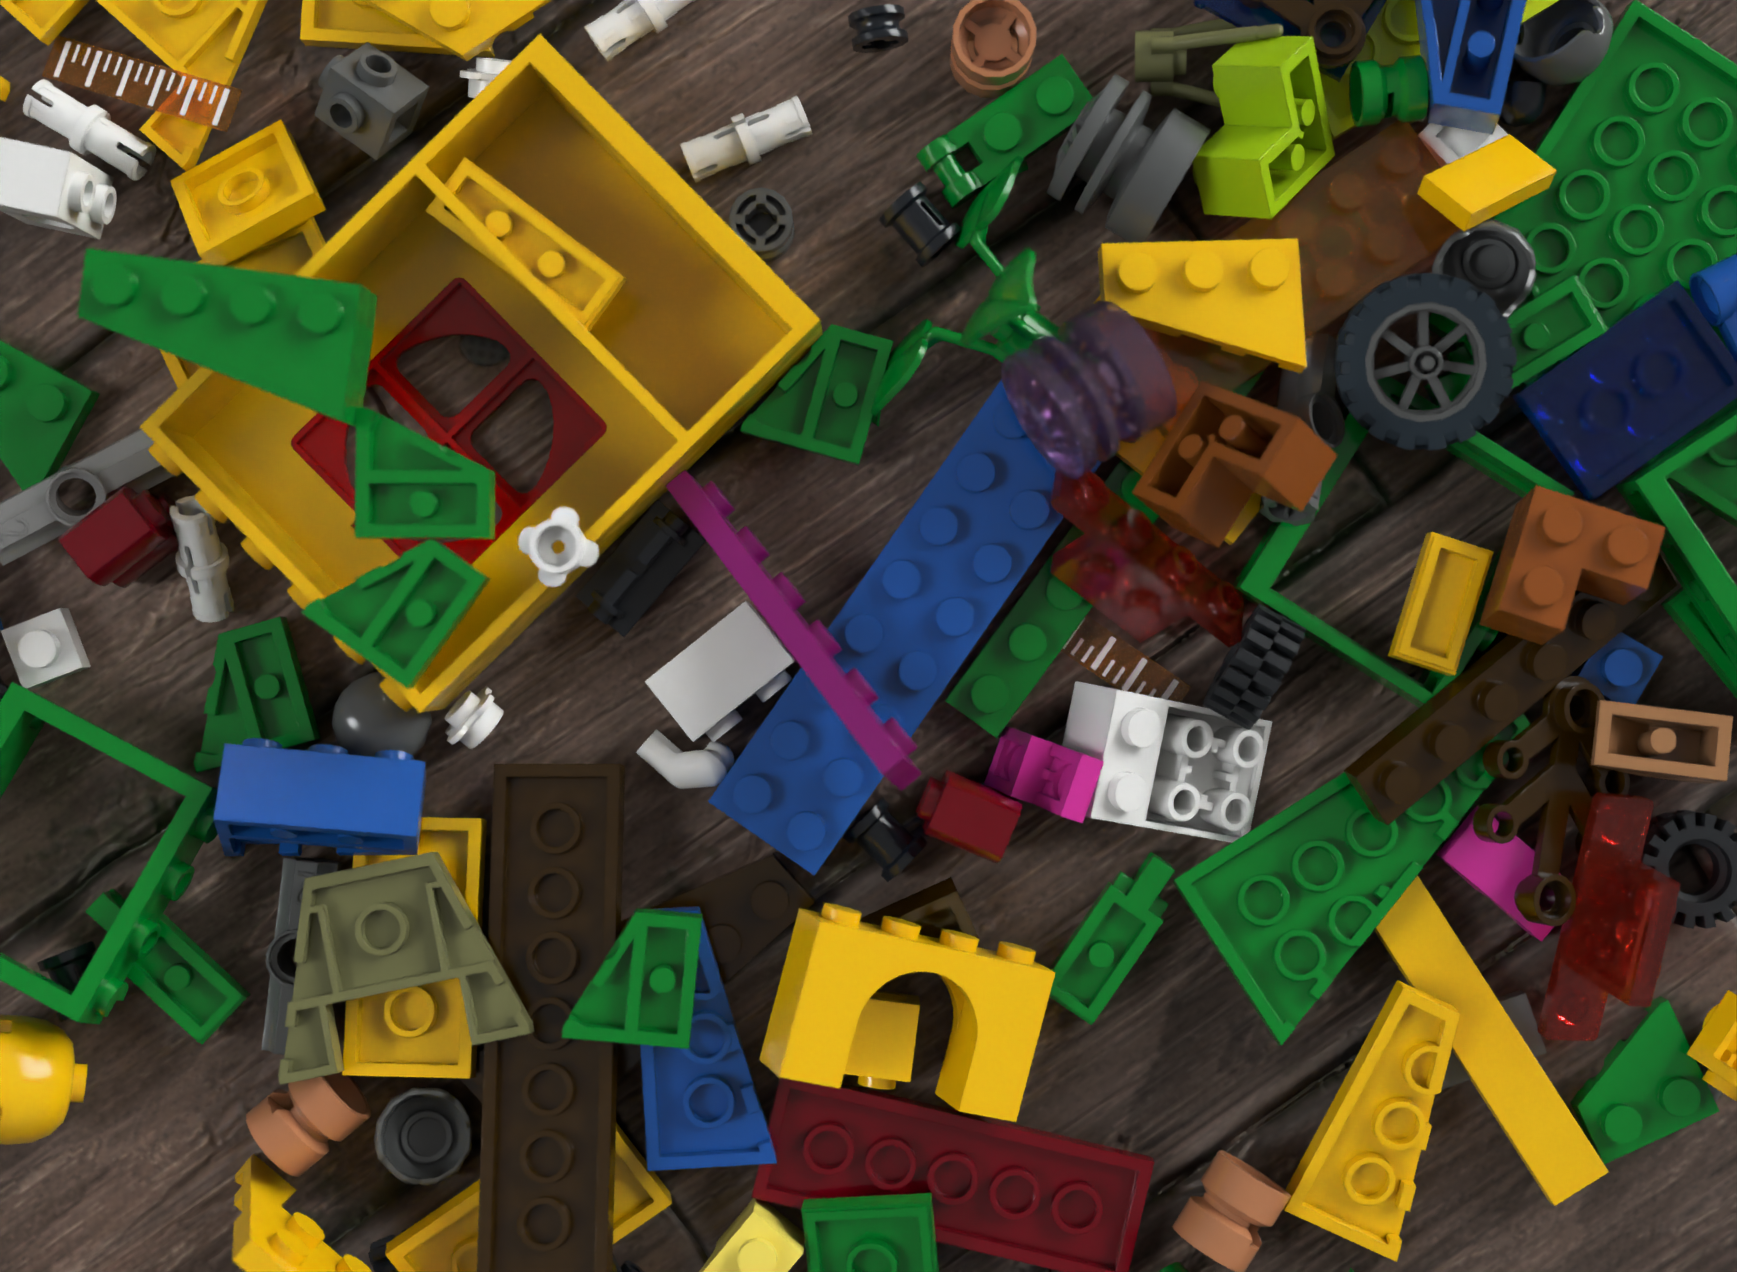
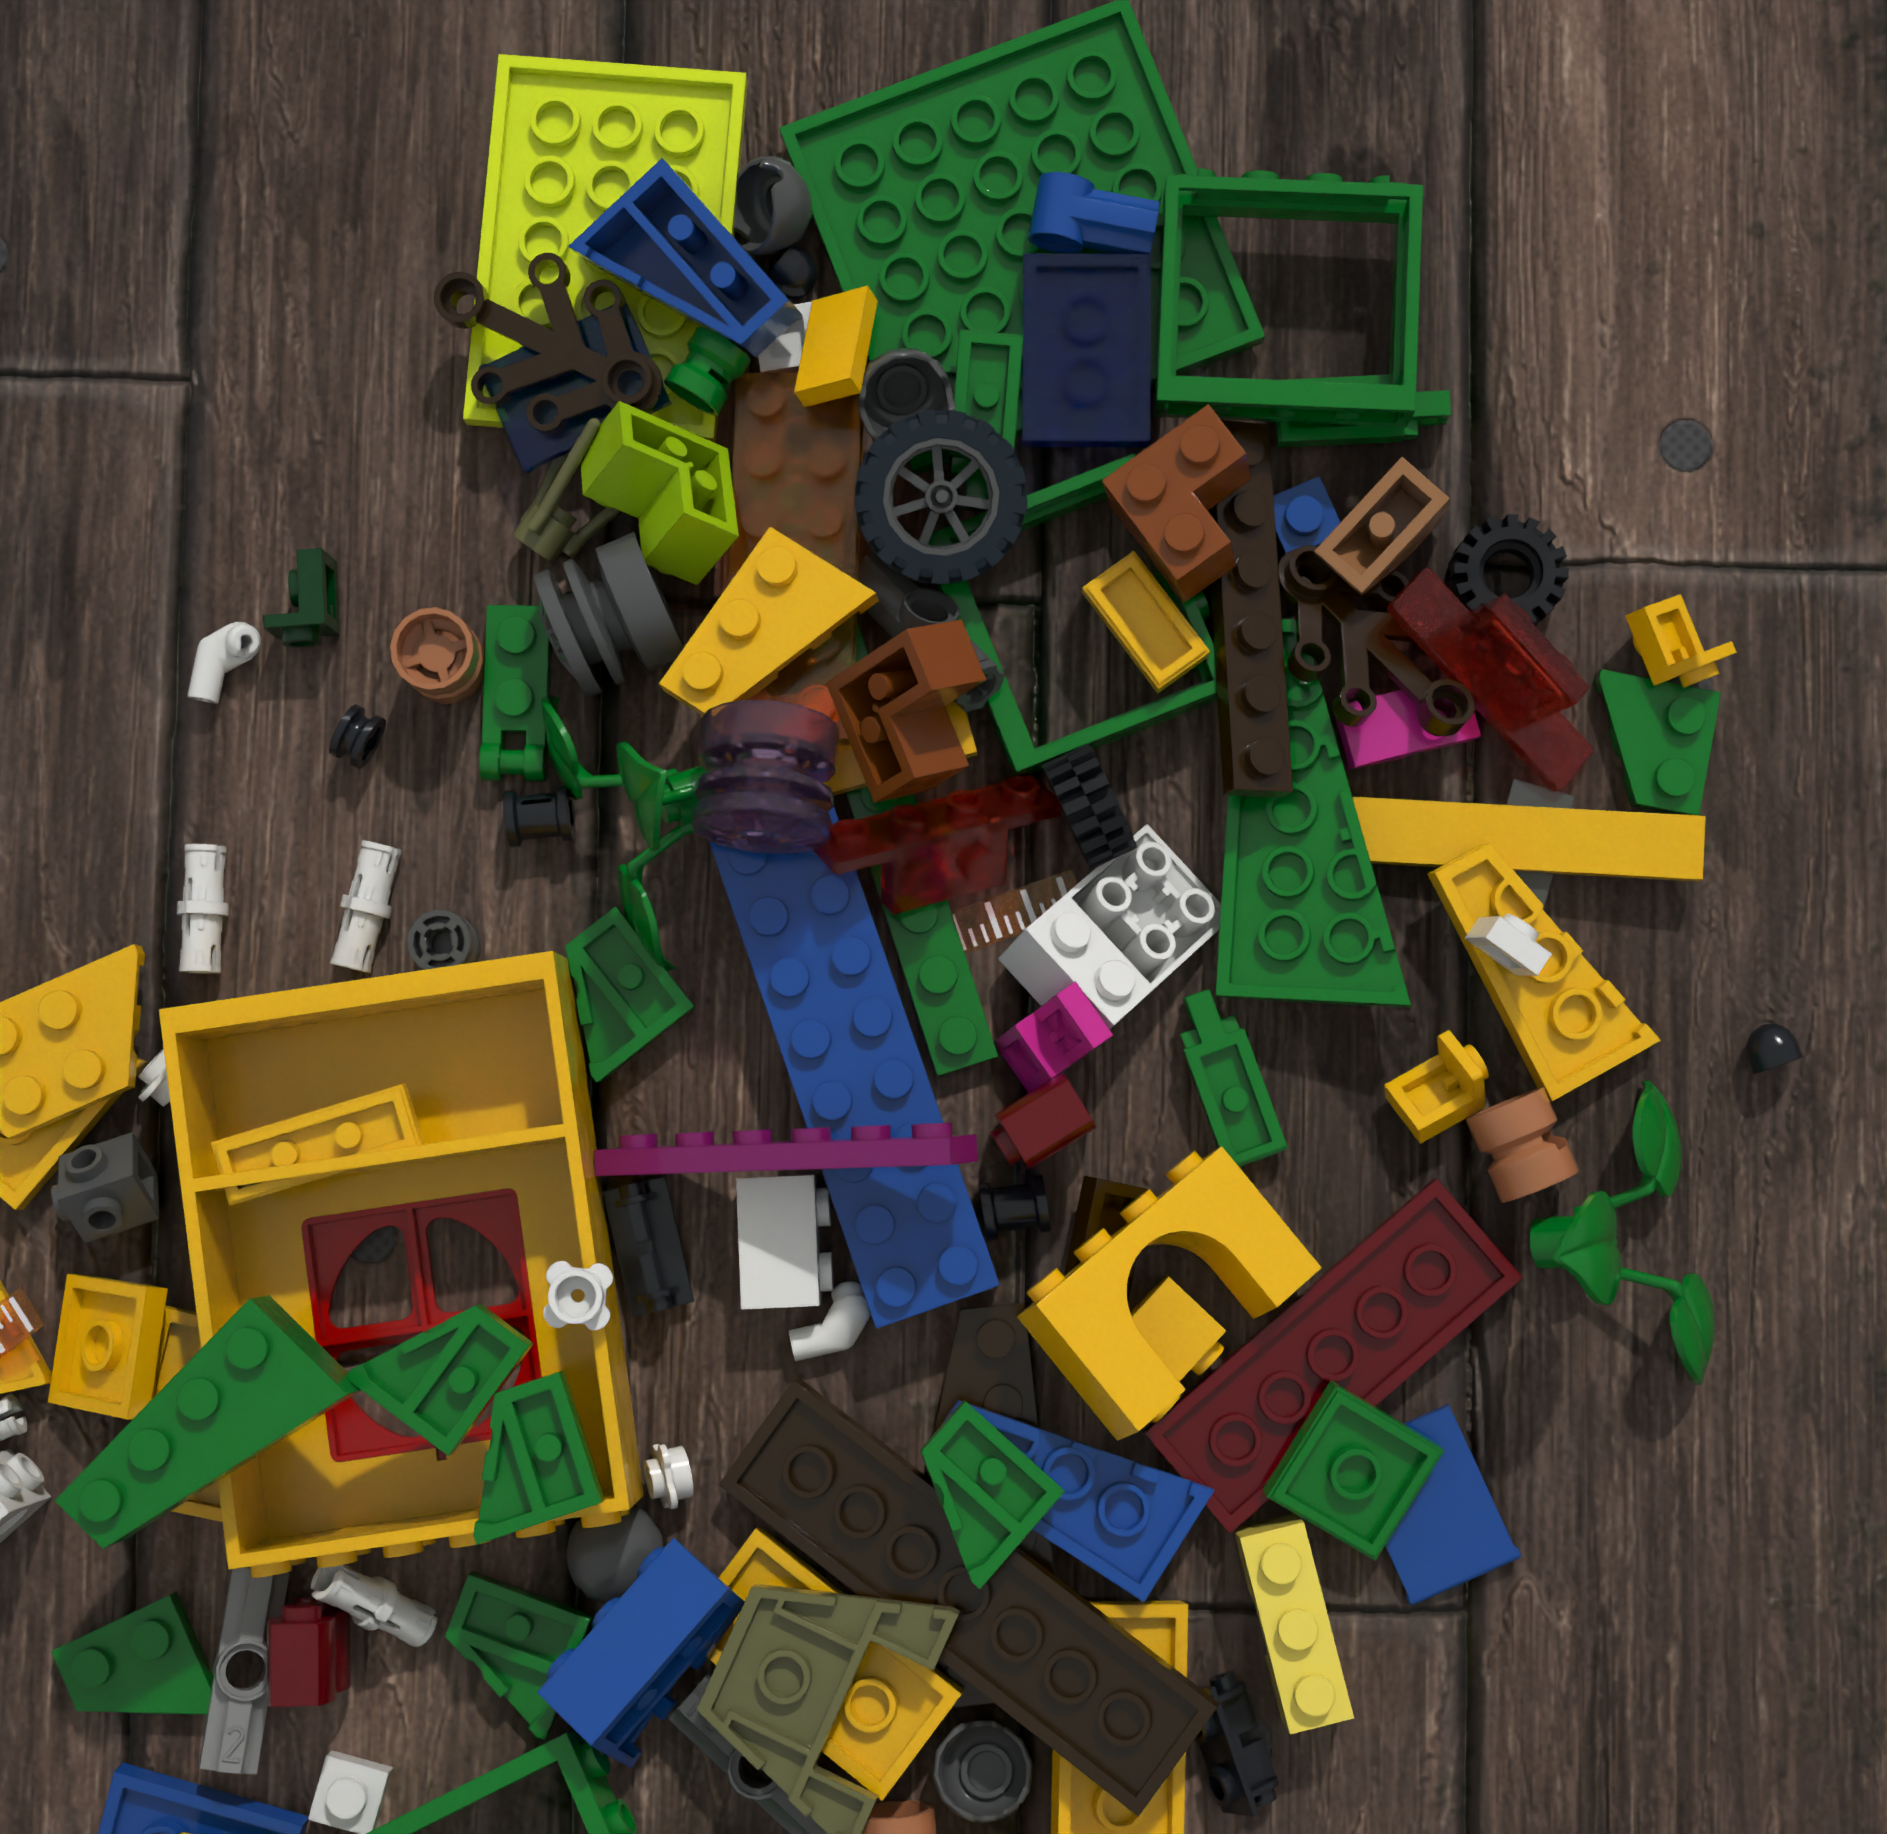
camera: 50 degrees left, 5 degrees down
(1228, 1113) = (1440, 1089): none -> yellow bracket
(1389, 1090) = (1509, 943): none -> white plate

